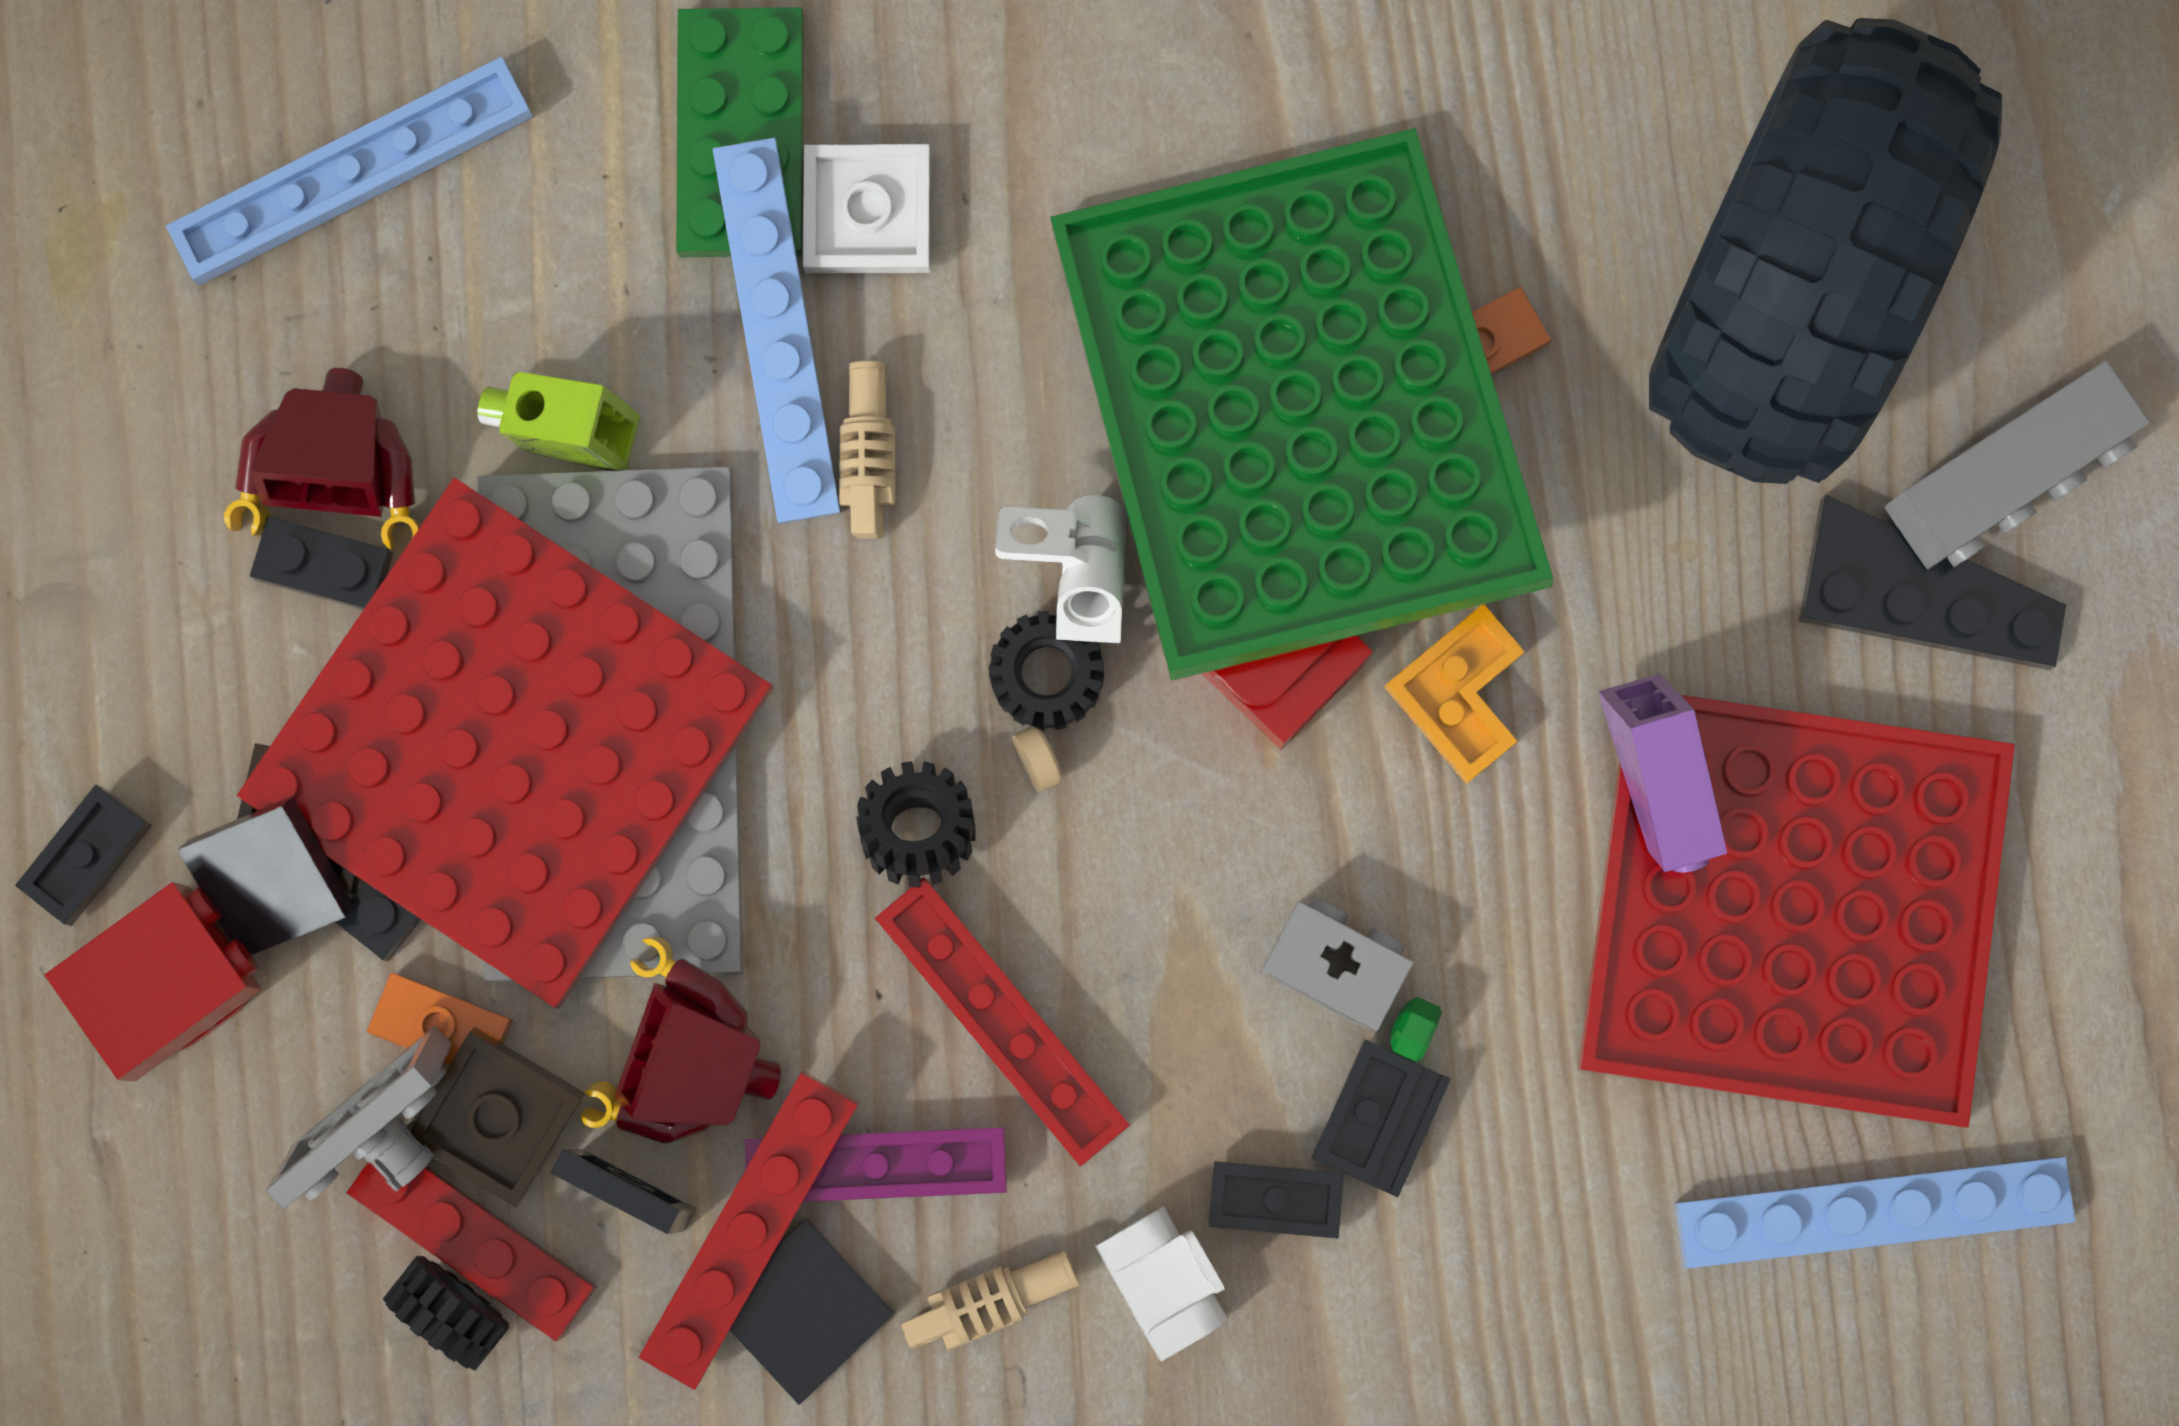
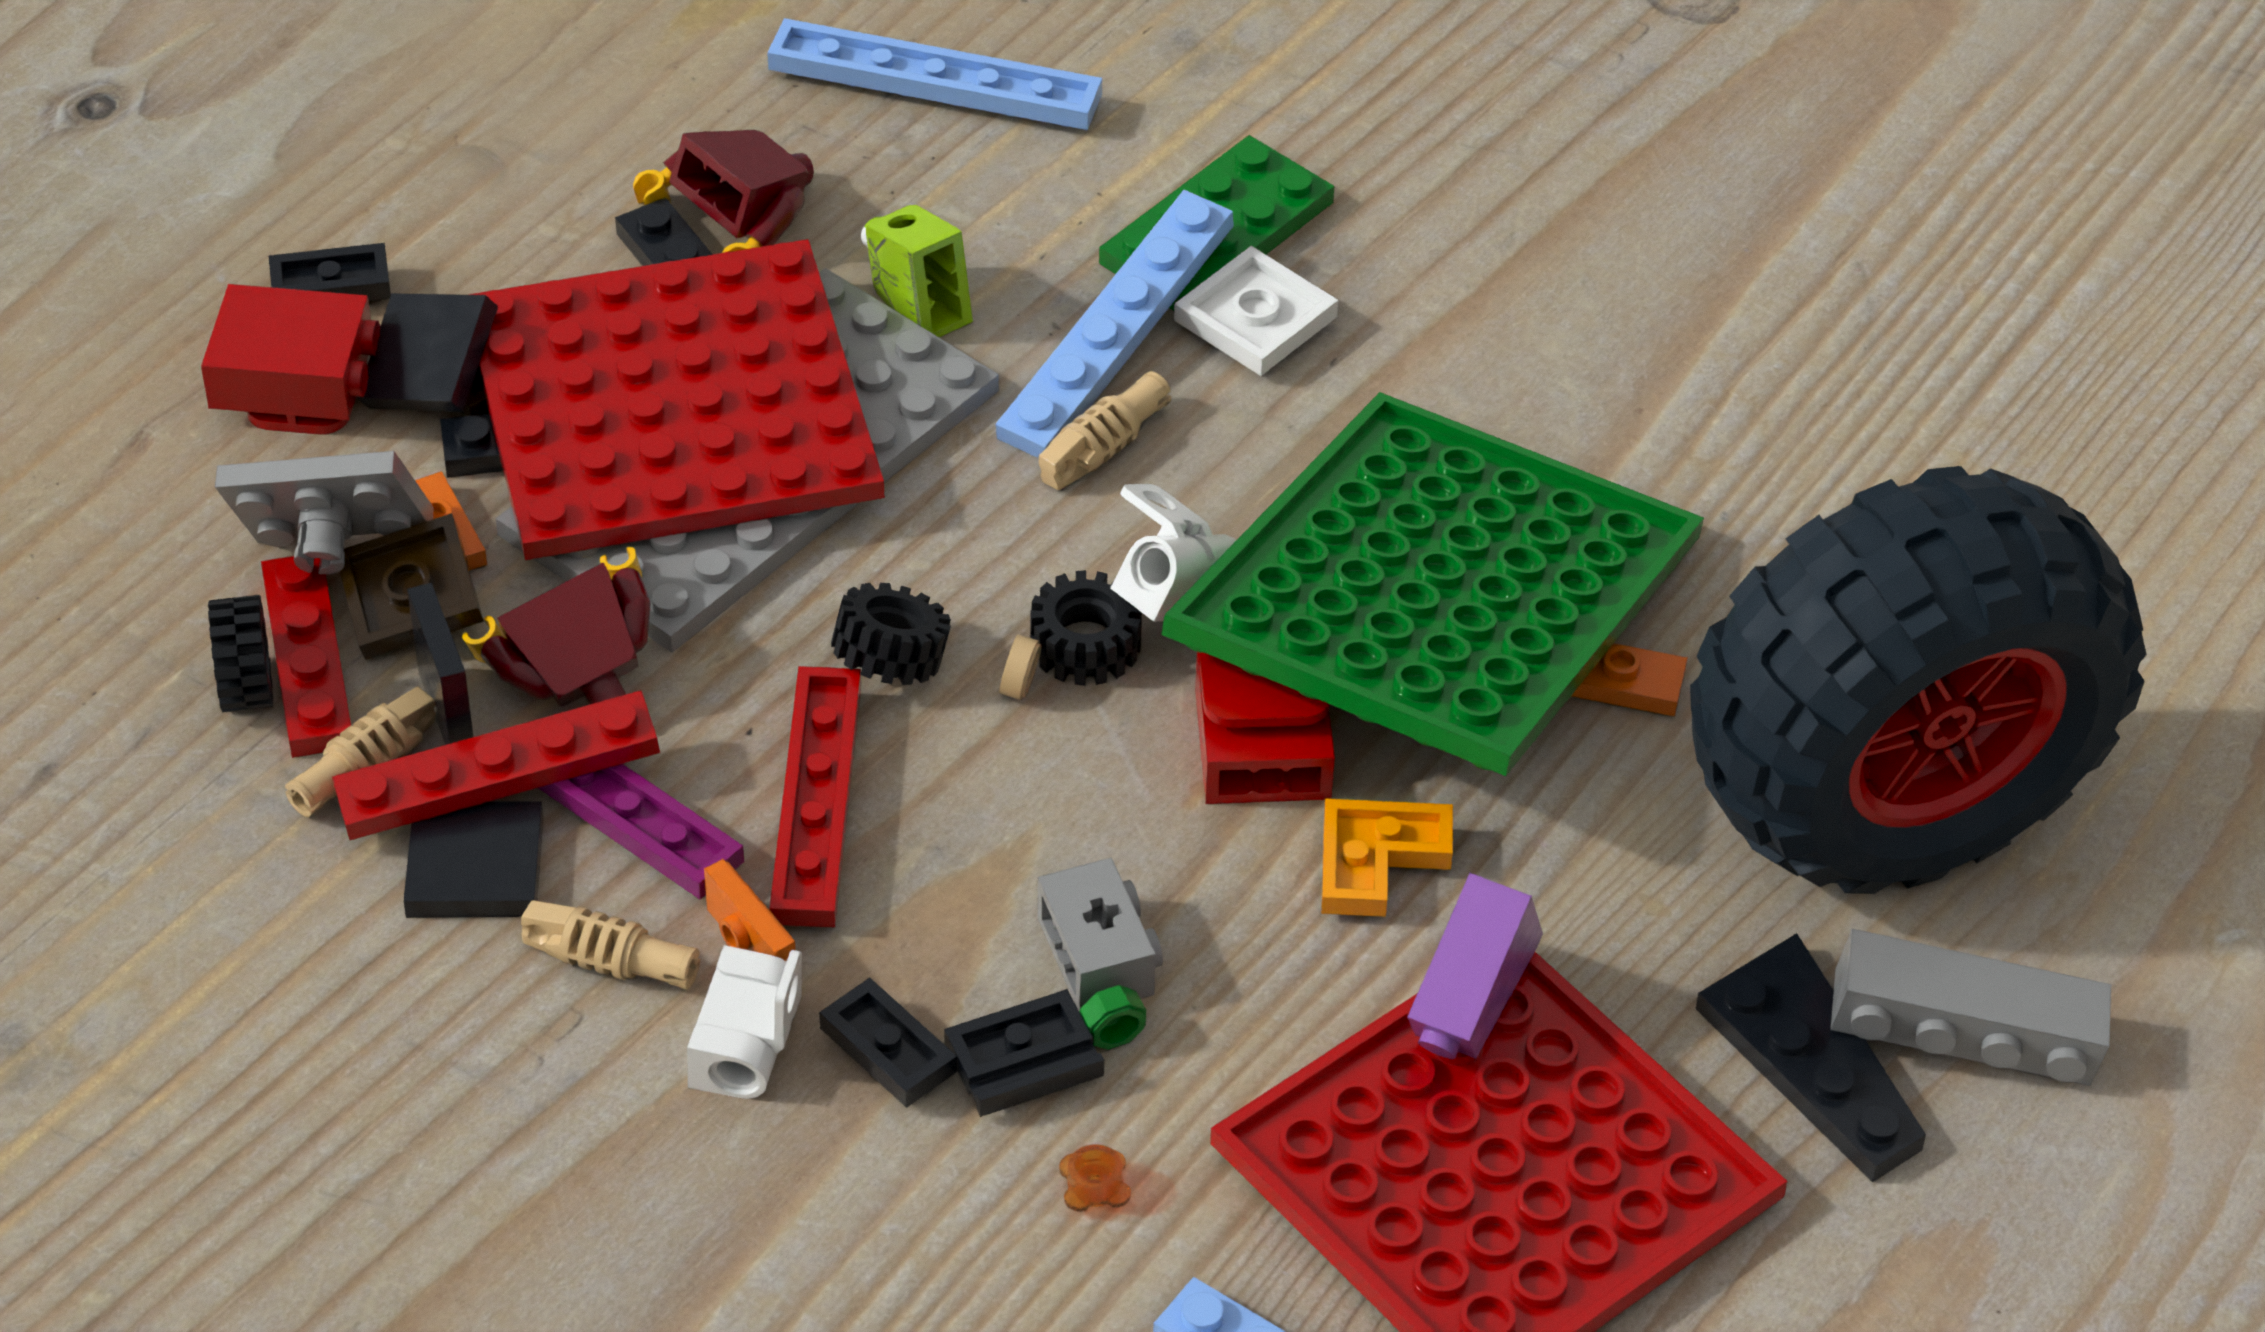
camera: 35 degrees right, 35 degrees down
(621, 1299) = (379, 737): none -> tan hinge
(1077, 1195) = (742, 915): none -> orange plate
(1529, 1197) = (1096, 1163): none -> clear orange plate

